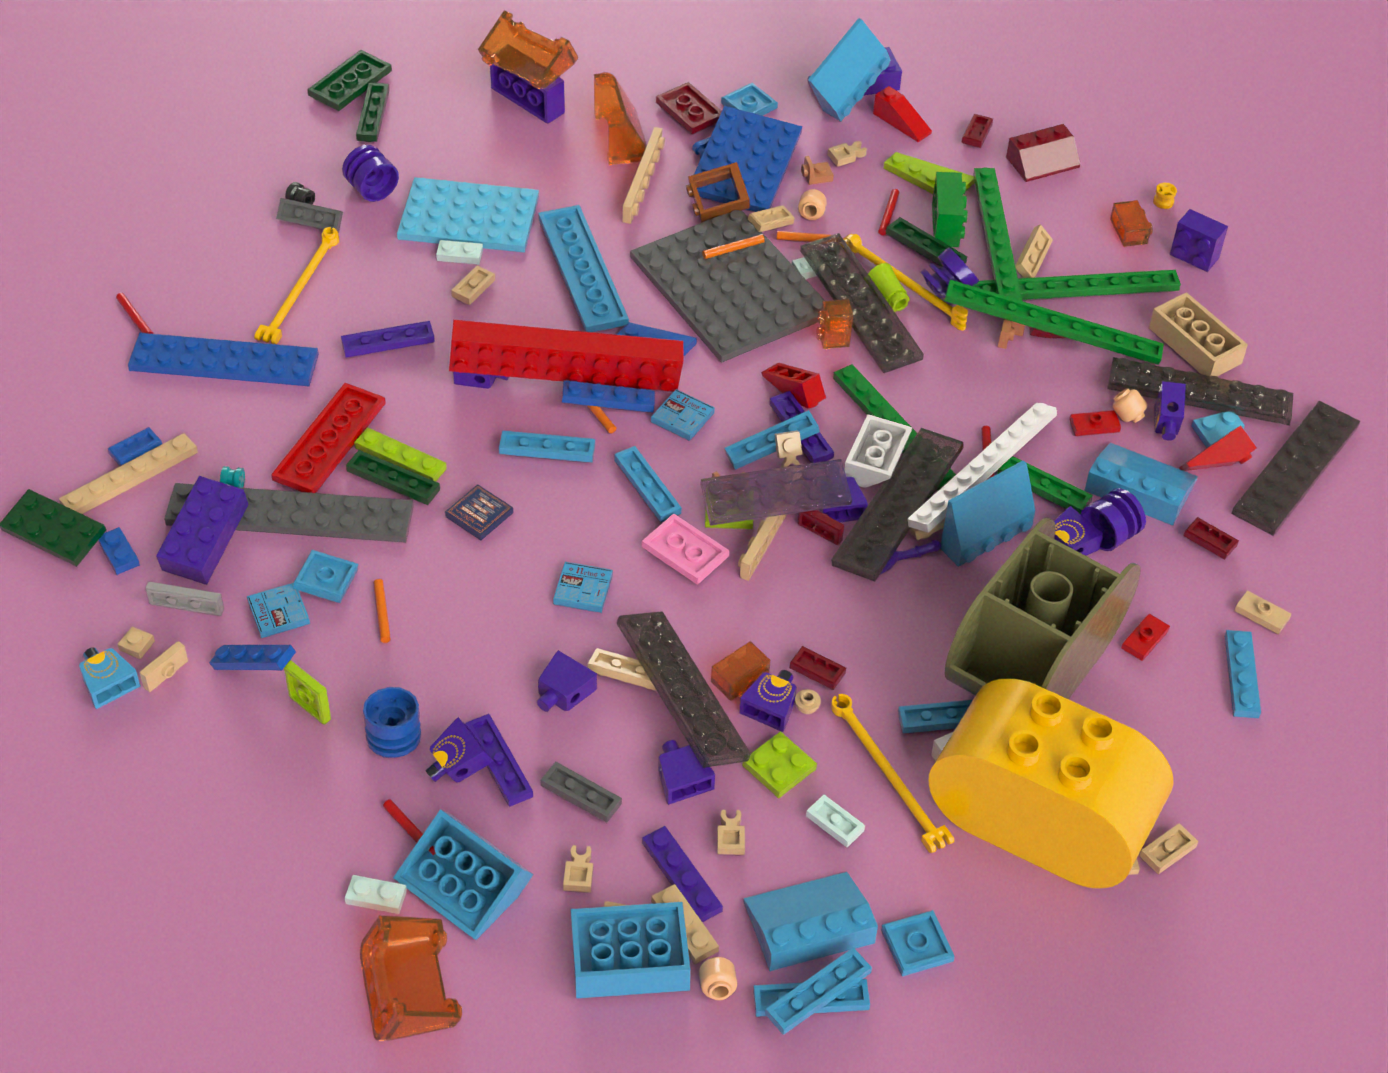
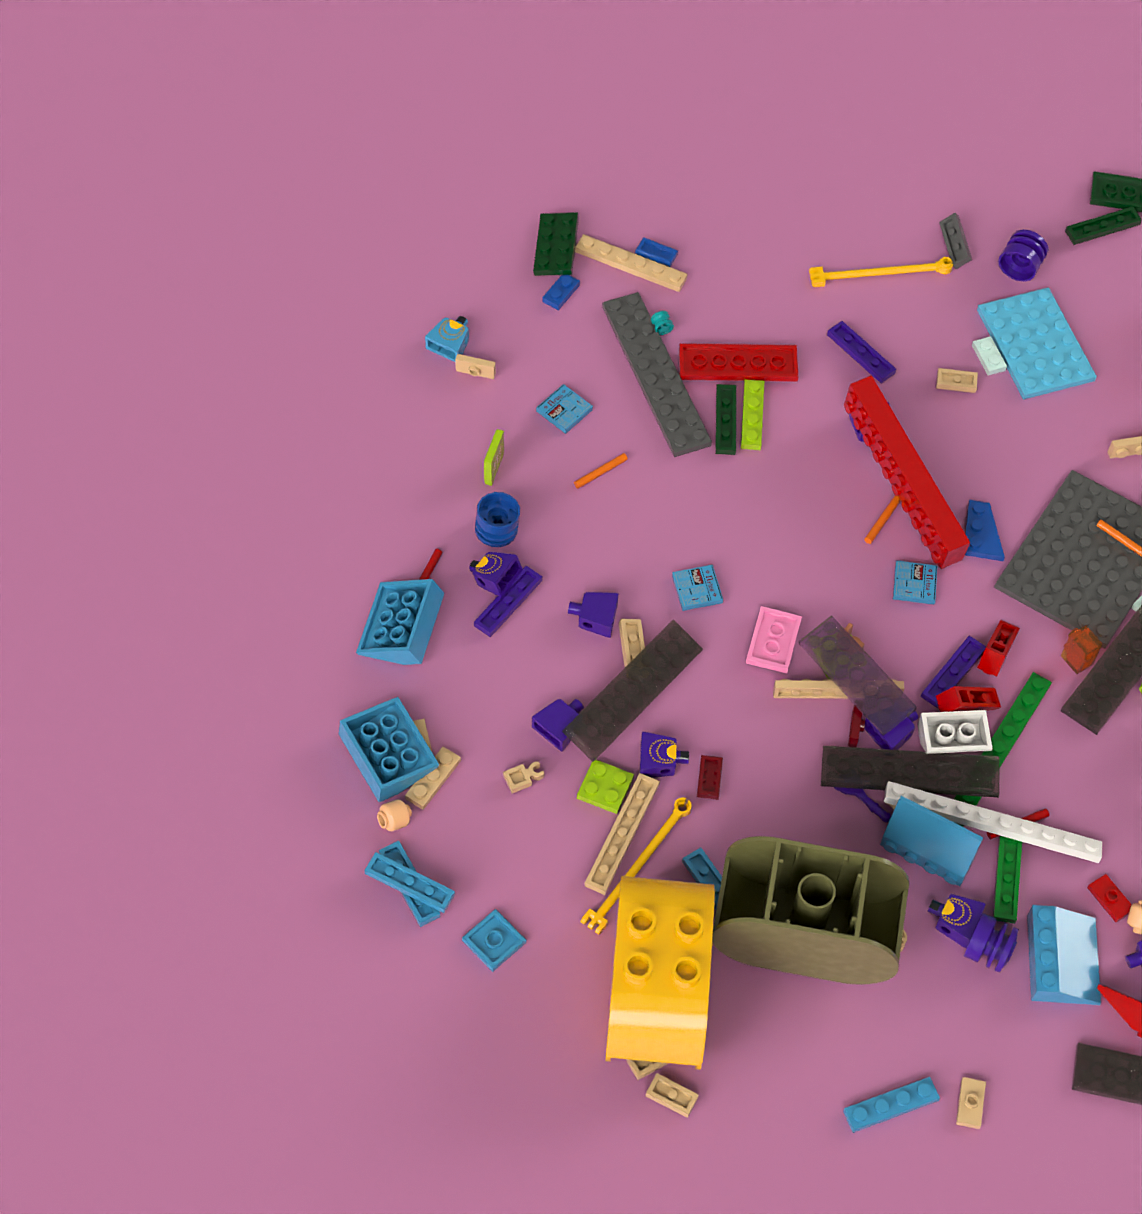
camera: 65 degrees right, 10 degrees up
(134, 315) = (782, 187): red bar -> none
(136, 642) = (489, 341): tan plate -> none
(185, 598) = (538, 349): light grey tile -> none
(202, 530) = (599, 327): dark purple brick -> none
(223, 359) = (775, 263): blue plate -> none
(252, 657) = (503, 410): blue plate -> none
(299, 193) = (972, 224): pearl dark grey wheel -> none
(325, 576) = (609, 421): dark azure tile -> none
(375, 894) = (361, 578): light aqua plate -> none
(406, 978) = (302, 626): clear orange windscreen -> none
(479, 512) = (728, 489): dark blue tile -> none
(547, 446) = (819, 504): dark azure plate -> none
(578, 872) = (438, 692): tan plate -> none
(581, 792) = (508, 664): dark grey plate -> none
(583, 269) = (1028, 445): dark azure plate -> none
(608, 396) = (897, 522): blue plate -> none
(647, 483) = (824, 587): dark azure plate -> none
(682, 873) = (473, 759): dark purple plate -> none
(739, 670) = (674, 723): clear orange brick -> none
(764, 442) = (921, 654): dark azure plate -> none
(788, 447) = (917, 668): tan plate -> none
(805, 706) = (671, 787): tan plate -> none
(811, 920) = (475, 858): dark azure slope -> none
(835, 820) = (571, 842): light aqua plate -> none
(843, 430) = (968, 699): none -> red slope
(847, 771) = (622, 834): none -> tan plate
(1145, 637) = (886, 1014): red plate -> none
(1211, 538) = (1029, 1034): dark red plate -> none

